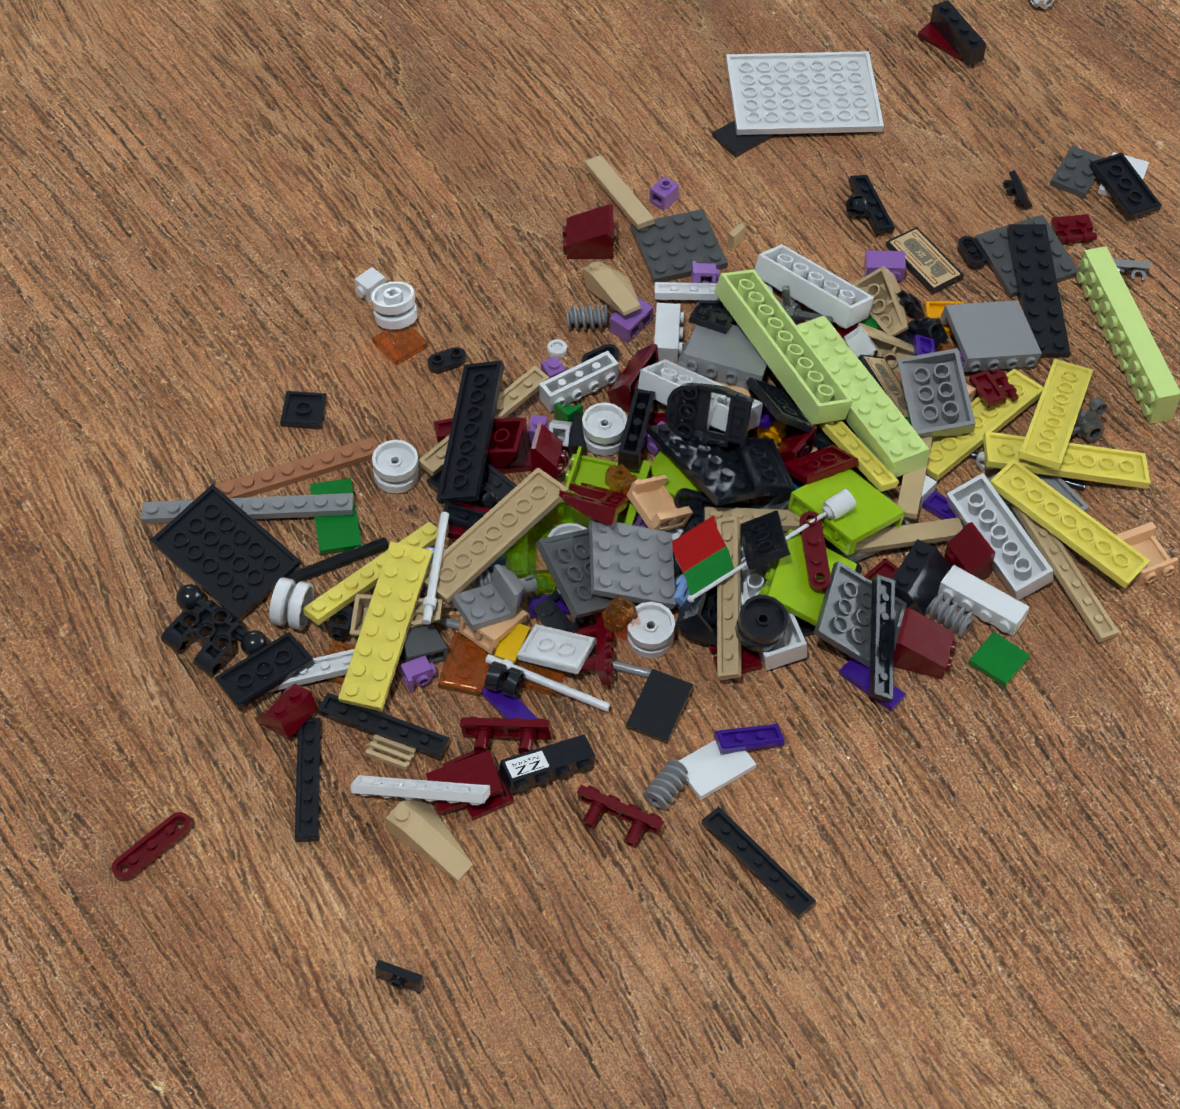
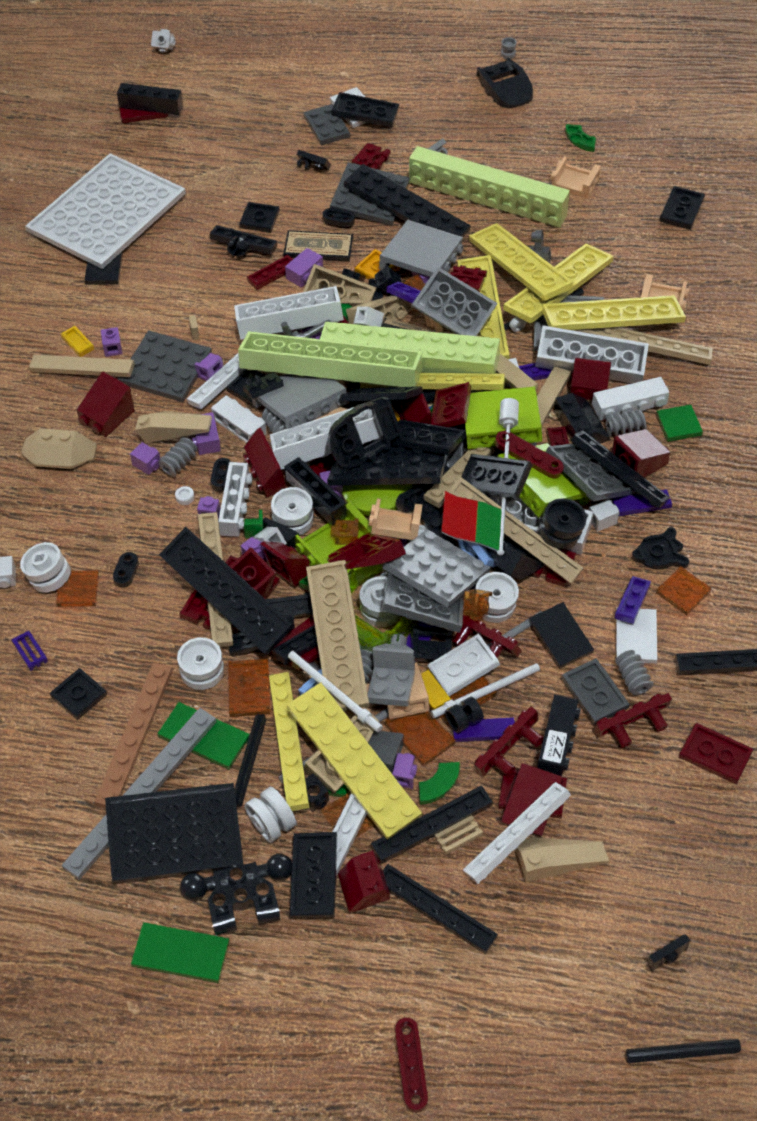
camera: 50 degrees left, 0 degrees up
(131, 629) = (180, 952): none -> green tile
(310, 364) = (36, 662): none -> dark purple tile
(316, 1043) = (683, 1050): none -> black axle
(406, 515) = (249, 687): none -> clear orange tile
(430, 708) = (440, 783): none -> green tile
(521, 237) = (58, 449): none -> tan wedge
(566, 296) = (145, 458): none -> medium lavender brick
(623, 766) = (595, 691): none -> dark grey plate
(642, 903) = (716, 753): none -> dark red tile
(645, 173) = (77, 341): none -> yellow tile
(801, 775) = (683, 590): none -> clear orange tile
(824, 660) = (604, 515): none -> white brick
(829, 731) = (661, 551): none -> black tile
(853, 247) = (269, 273): none -> dark red tile
(912, 198) = (259, 217): none -> black tile

